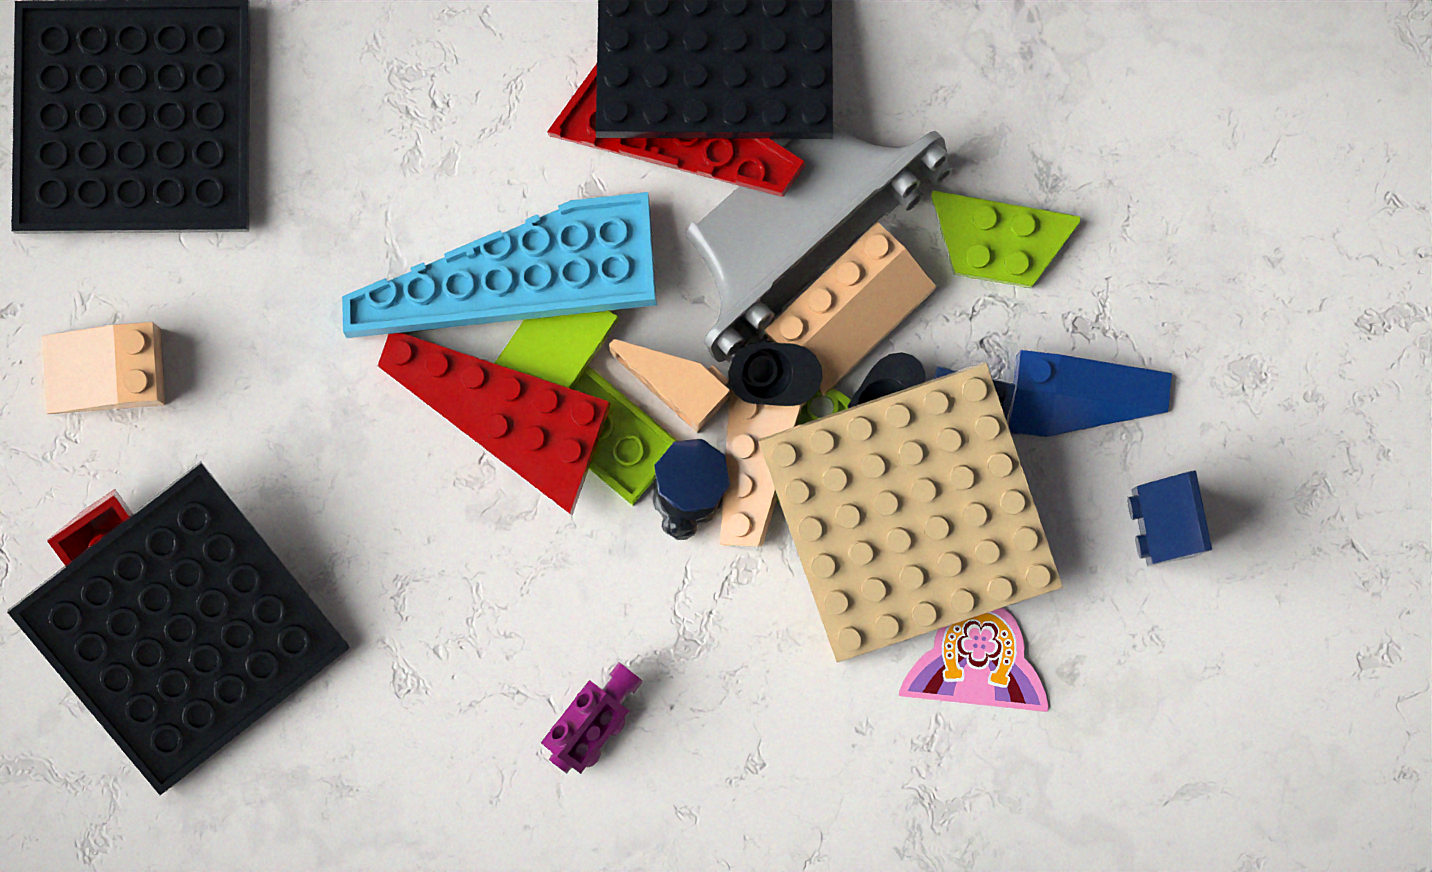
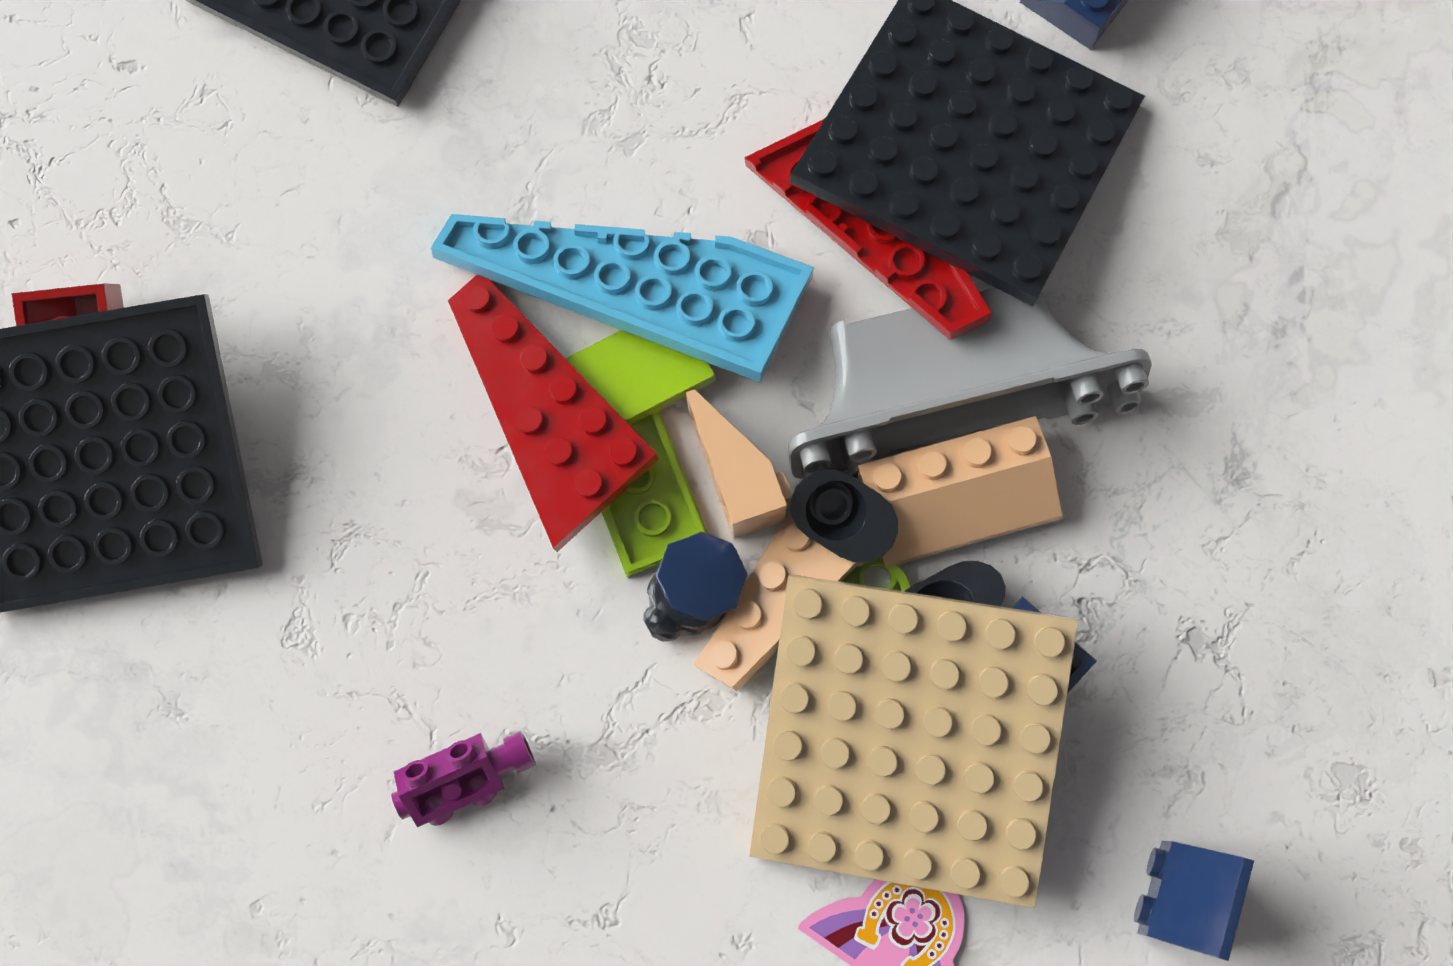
camera: 35 degrees right, 5 degrees down
(104, 368) = (184, 166): light nougat slope -> none
(1000, 239) = (1155, 504): lime wing -> none
(1075, 393) = (1154, 706): blue wedge -> none

